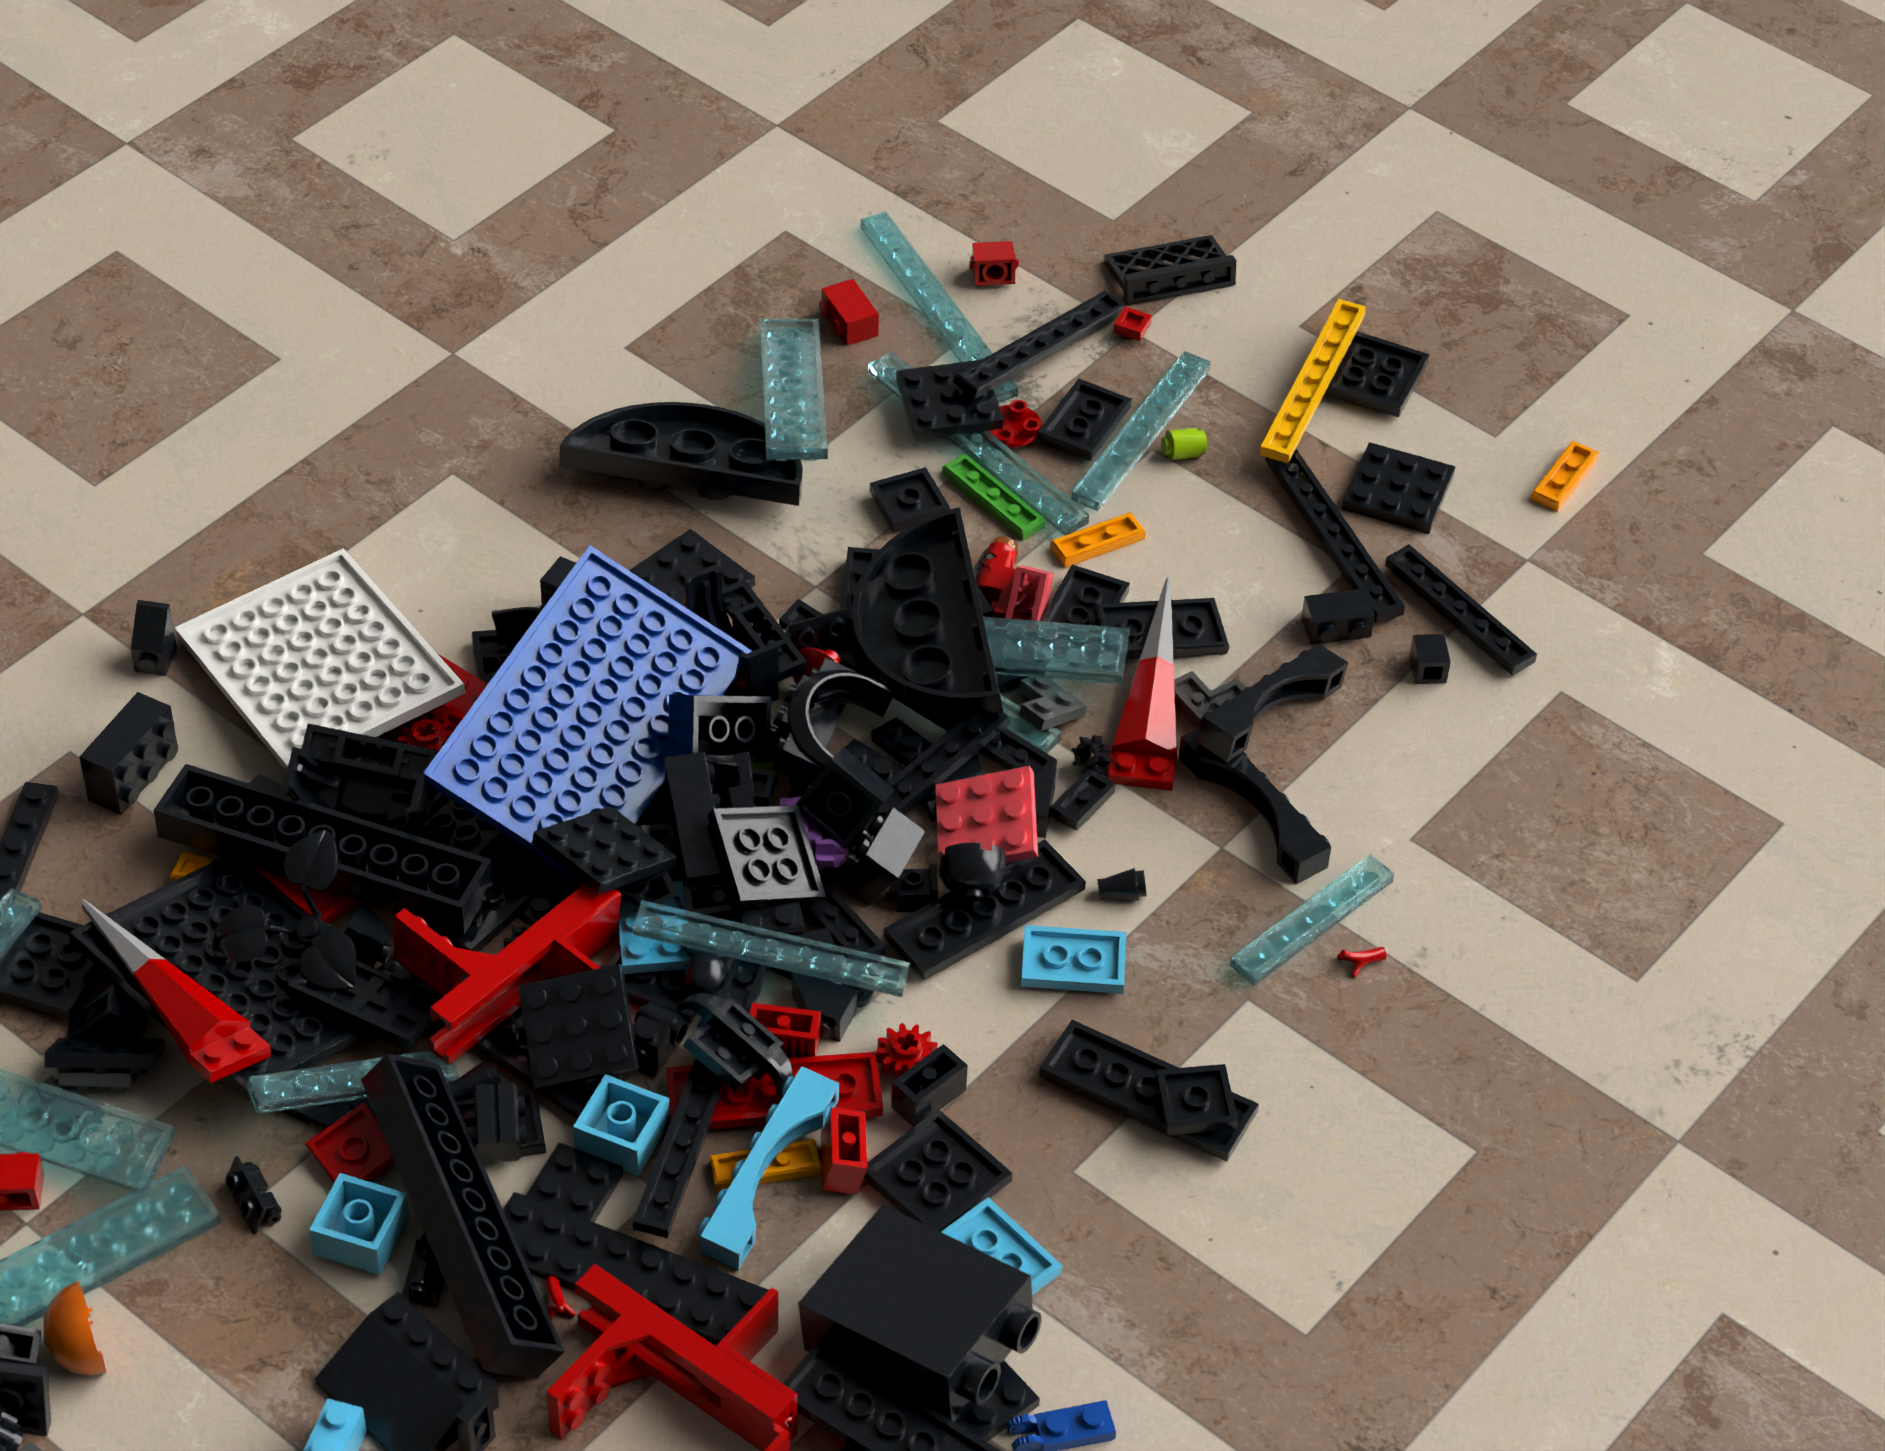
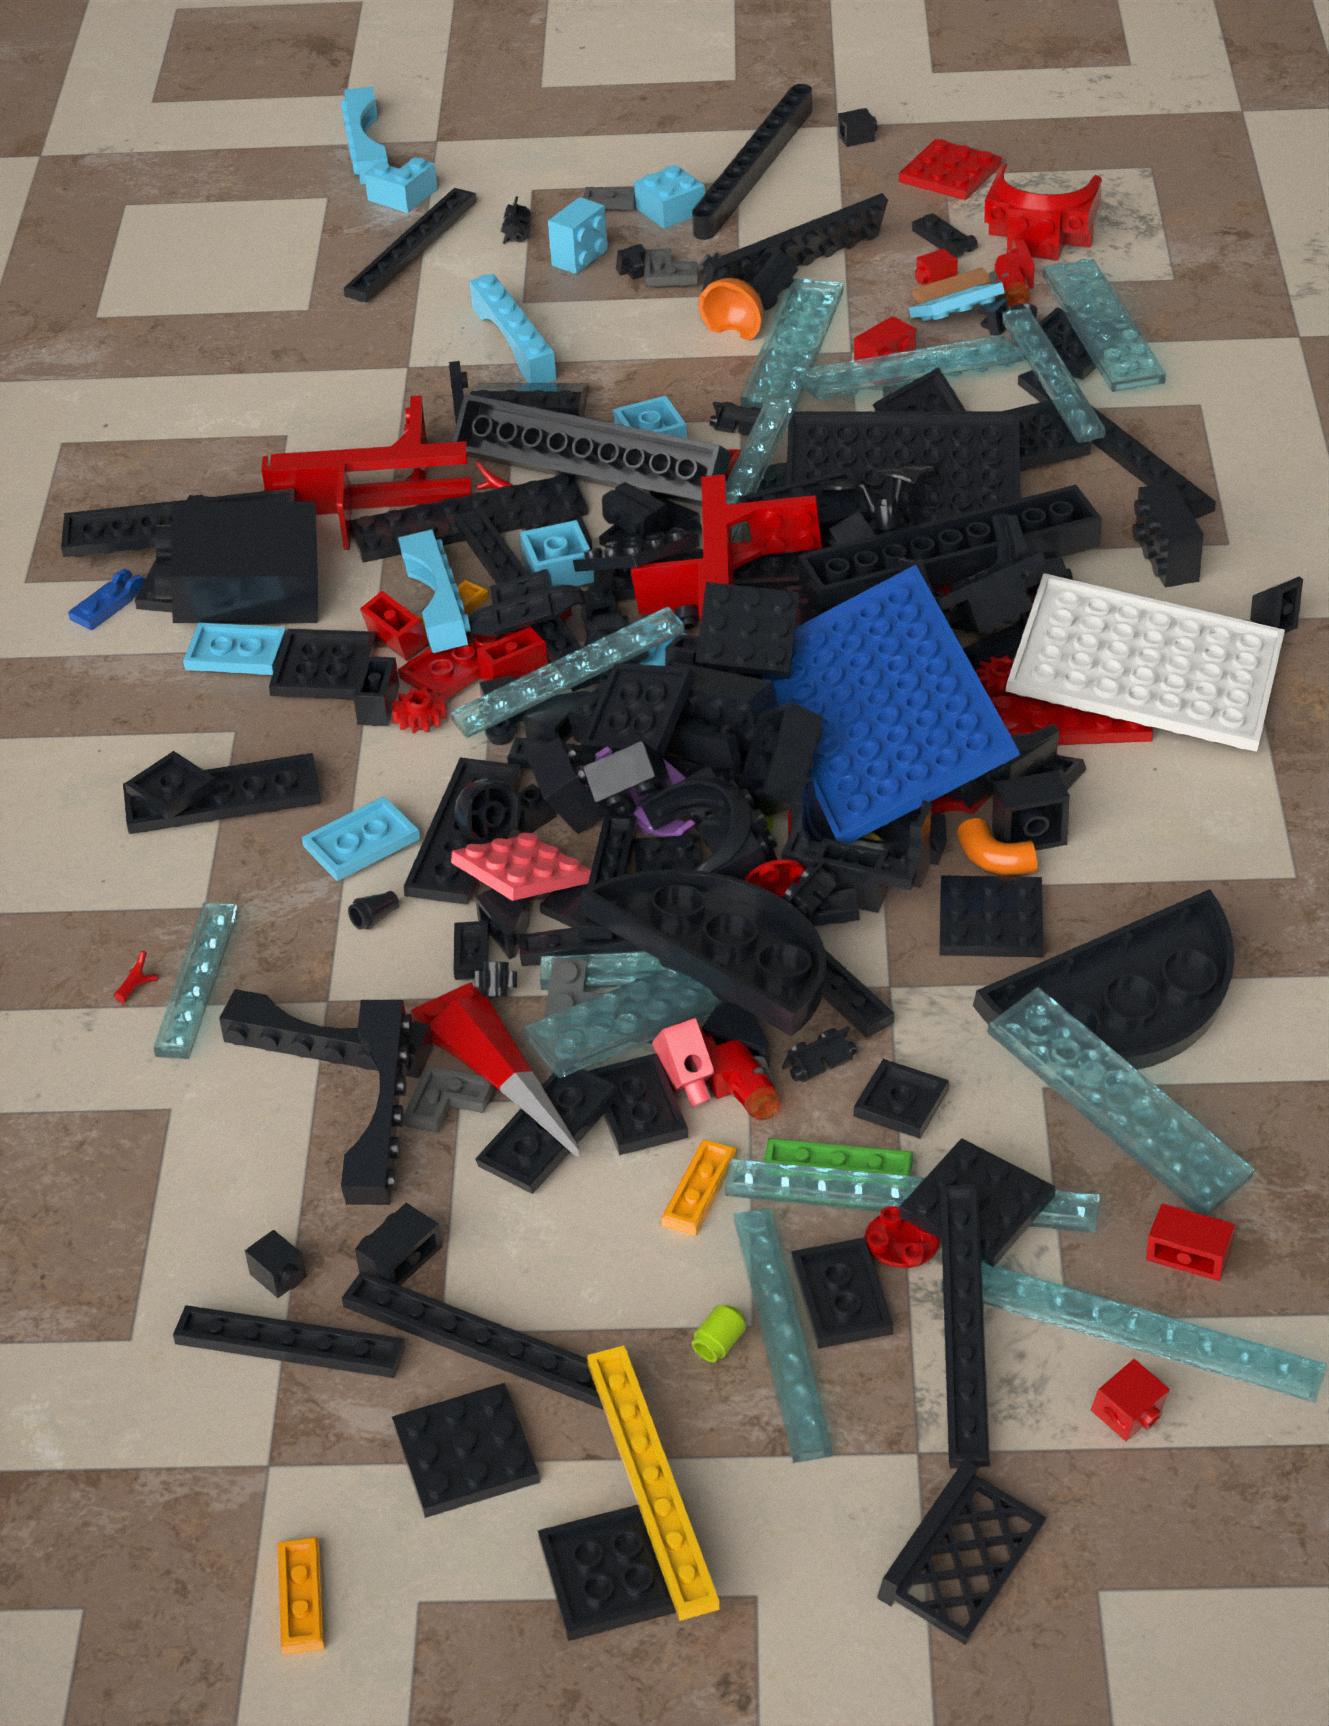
camera: 145 degrees right, 5 degrees down
(205, 1028) = (861, 413): red plate -> none
(1132, 323) = (918, 1442): red plate -> none

